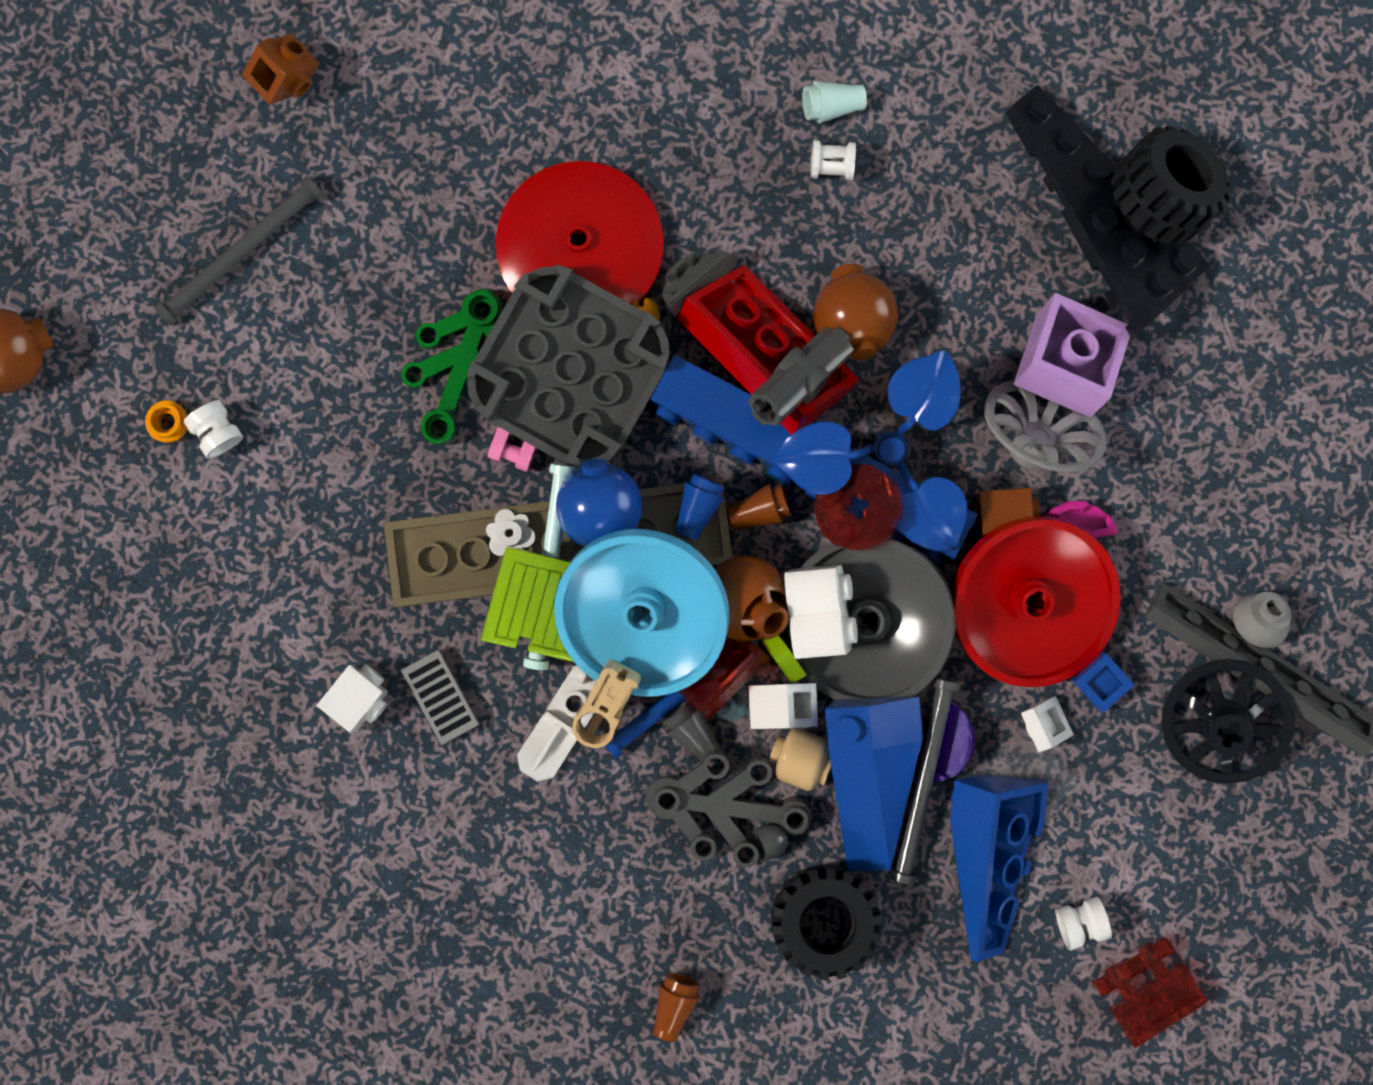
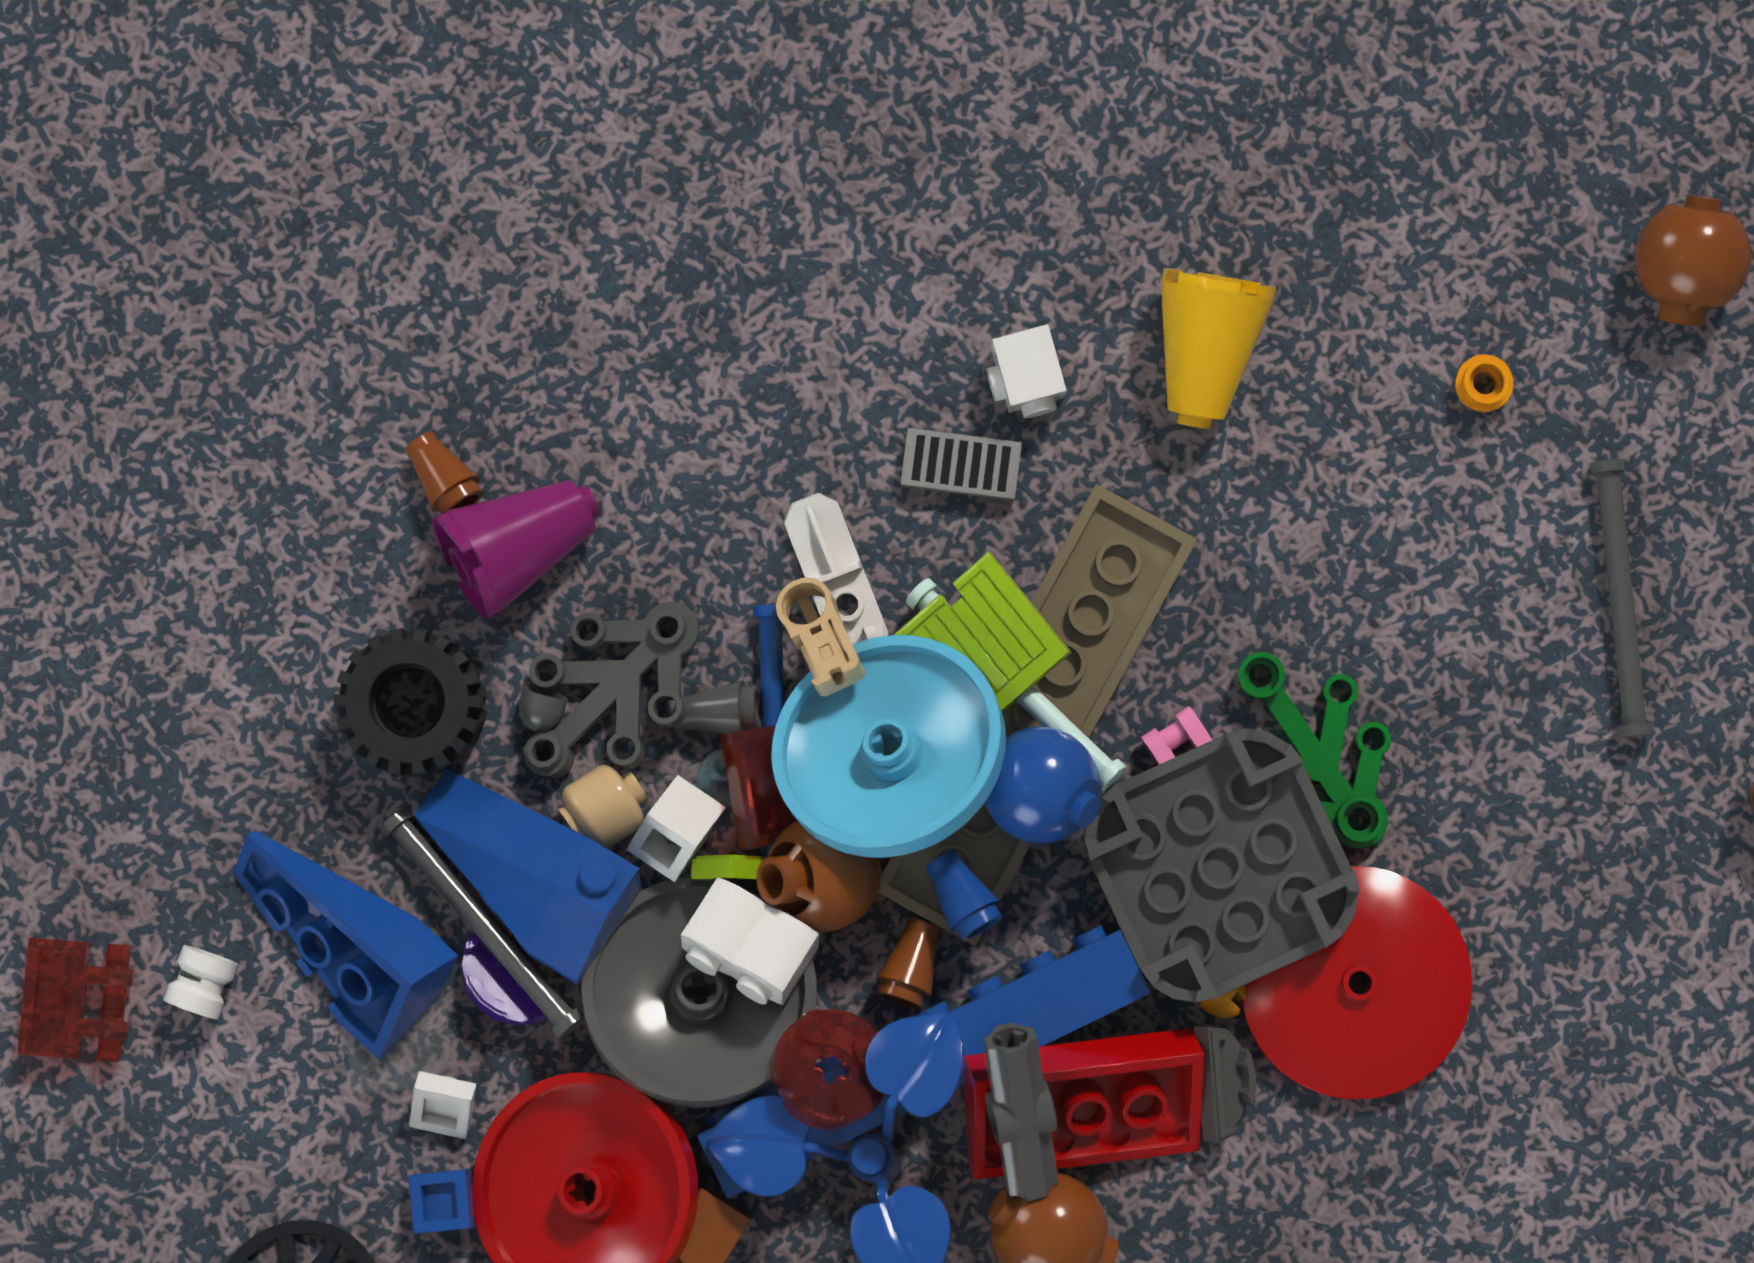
camera: 125 degrees right, 0 degrees up
(213, 429) = (1437, 427): white wheel -> none
(257, 602) = (1208, 340): none -> yellow cone
(504, 521) = (1101, 674): white plant -> none
(682, 933) = (513, 540): none -> magenta cone

